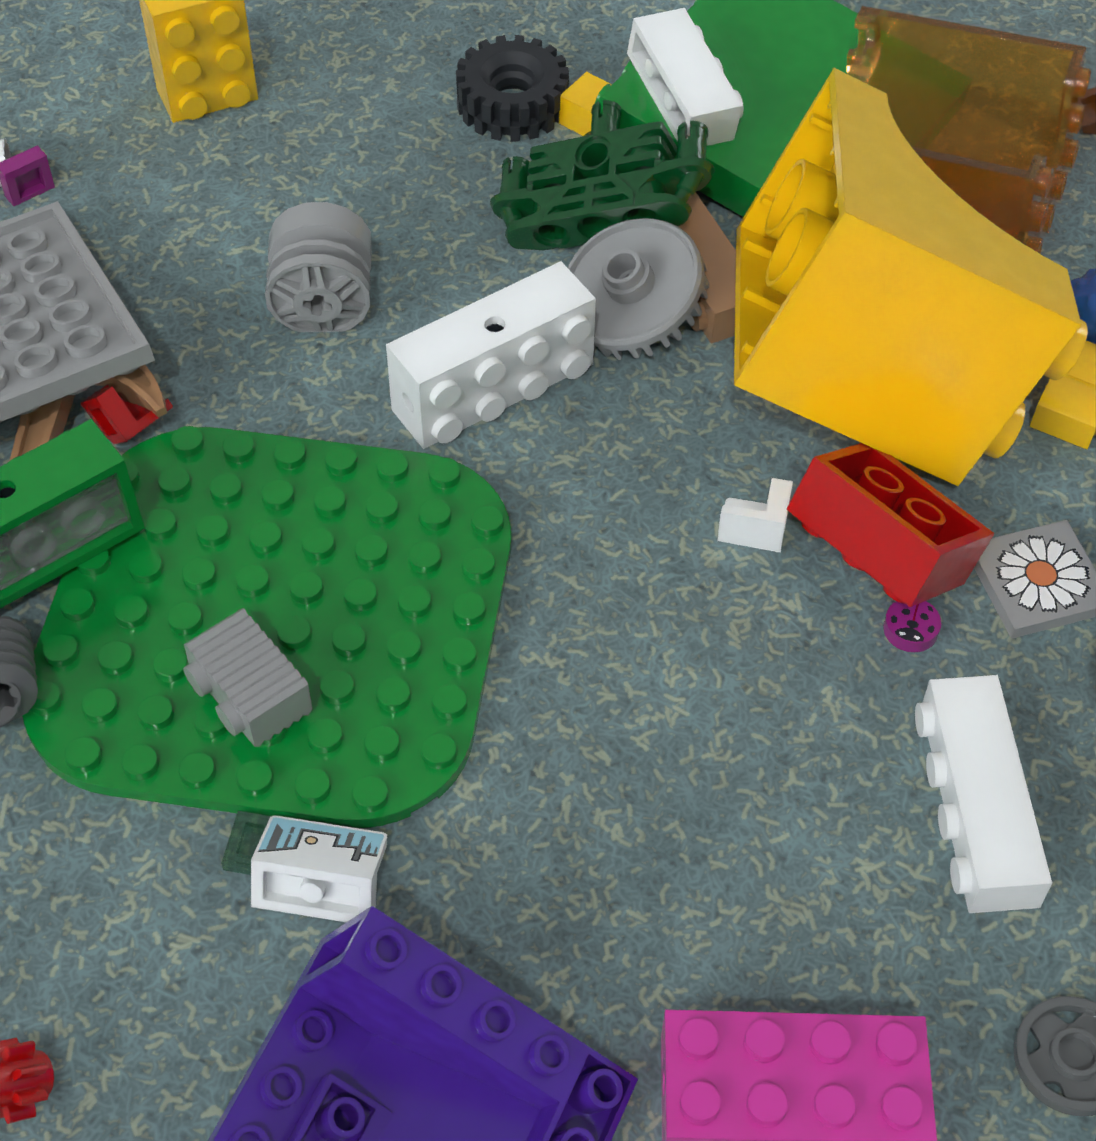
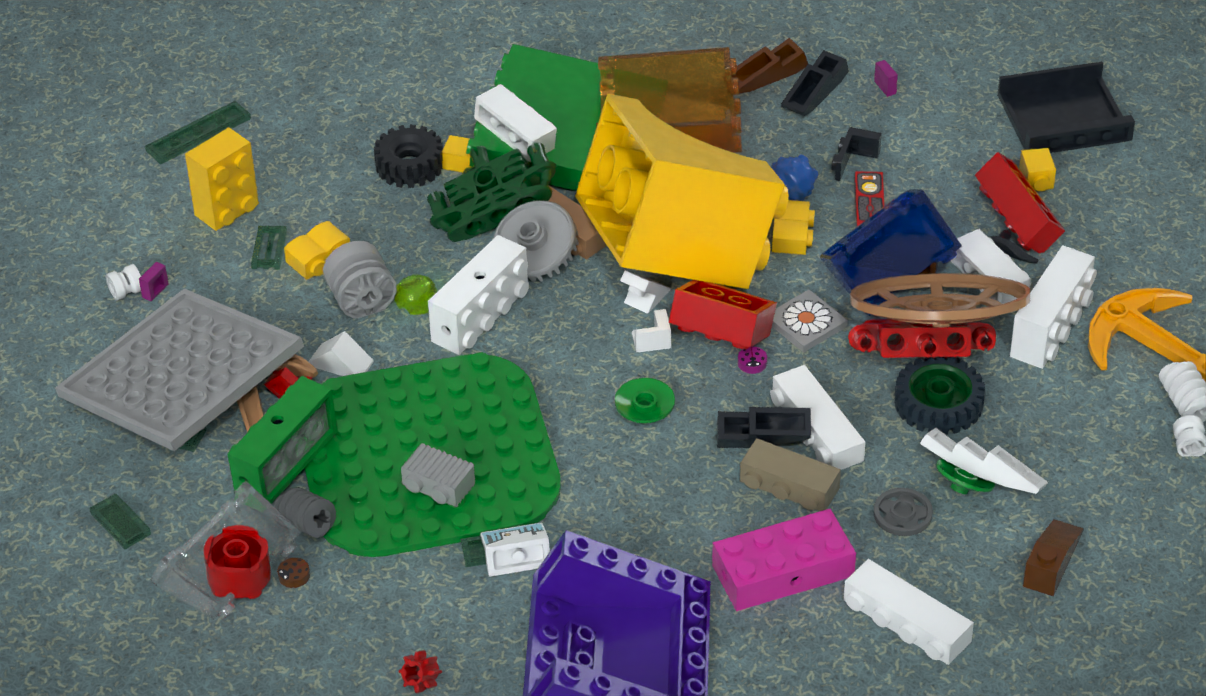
camera: 20 degrees left, 10 degrees down
(222, 194) = (267, 261): none -> clear green tile
(232, 394) = (341, 356): none -> white slope
(274, 190) = (310, 251): none -> yellow brick
(402, 312) = (414, 293): none -> clear neon green hair
(689, 625) = (644, 400): none -> green dish
(776, 434) = (643, 291): none -> white slope
(873, 778) = (768, 424): none -> black slope
(882, 899) = (790, 475): none -> dark tan brick

